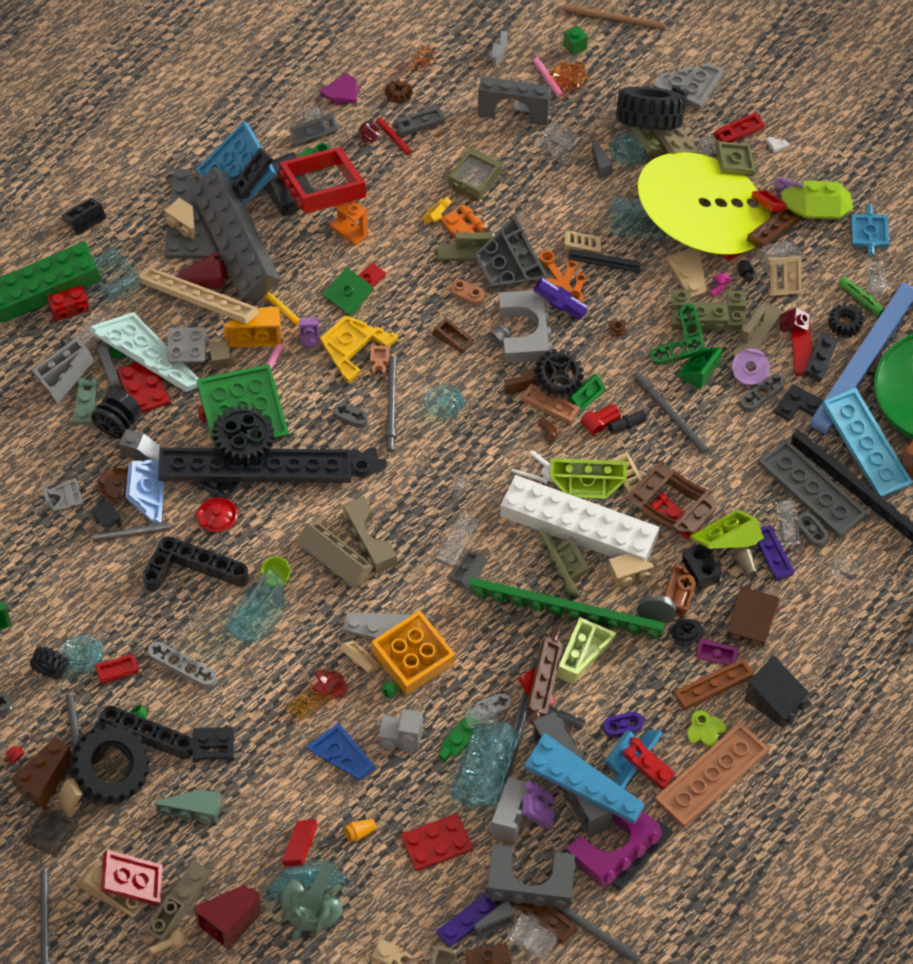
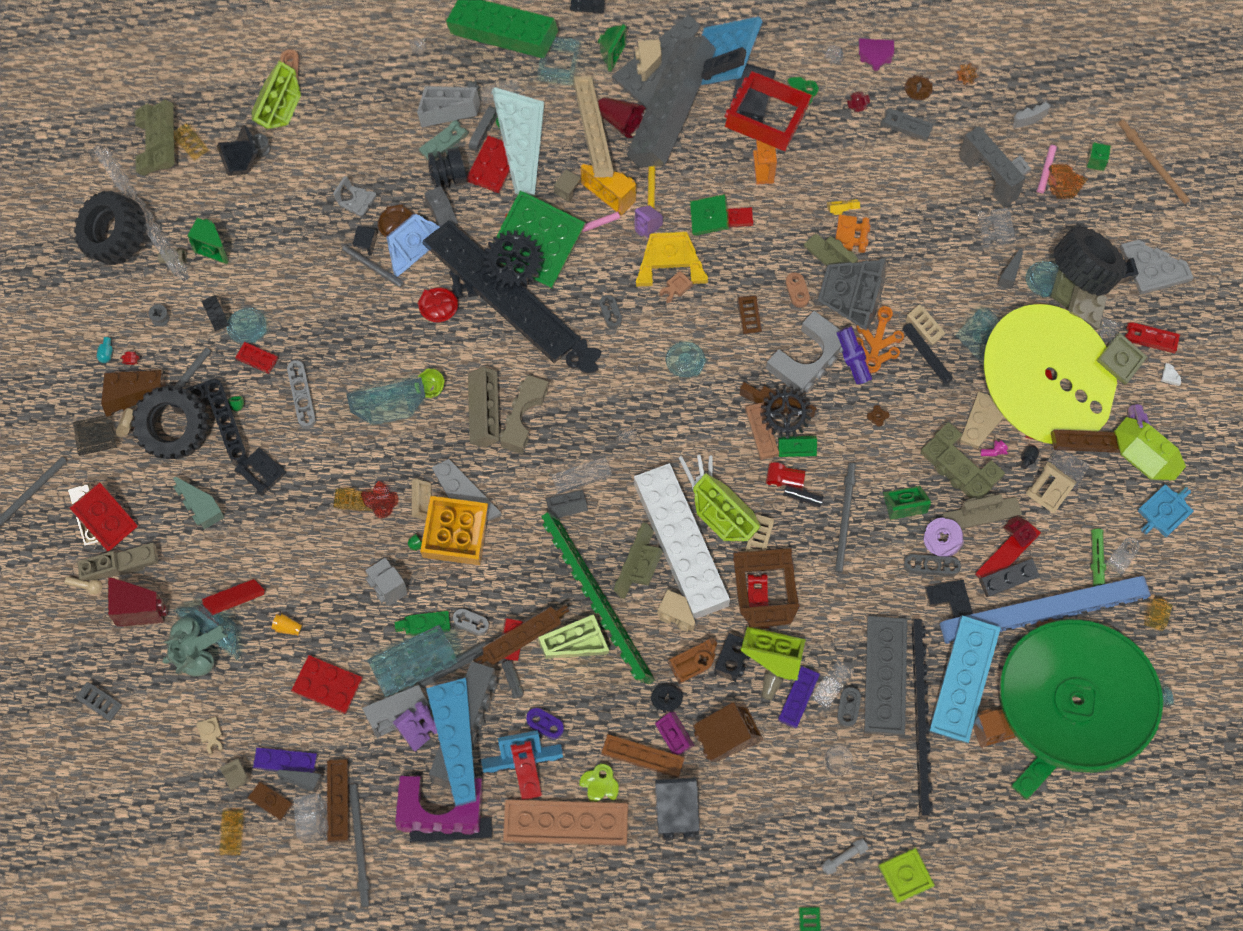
camera: 45 degrees right, 10 degrees up
(68, 303) = (505, 57): red brick -> none
(142, 232) = (612, 45): none -> green slope
(186, 345) = (550, 158): light grey bracket -> none
(193, 562) = (387, 324): black beam -> none
(313, 128) = (821, 65): dark grey plate -> none
(342, 752) = (335, 556): blue wing -> none
(390, 433) = (624, 350): dark grey bar -> none
(394, 136) = (876, 121): red bar -> none
(475, 174) = (901, 201): olive window -> none
(480, 714) = (450, 621): clear bracket -> none
(496, 336) = (782, 343): flat silver wheel -> none
(505, 886) = (359, 800): dark grey arch -> none
(550, 429) = (740, 452): reddish brown arm -> none
(656, 608) = (660, 660): dark grey tile -> none
(689, 340) = (918, 473): green beam -> none
(769, 200) = (1109, 416): red plate -> none
(845, 329) = (1057, 576): black tyre -> none

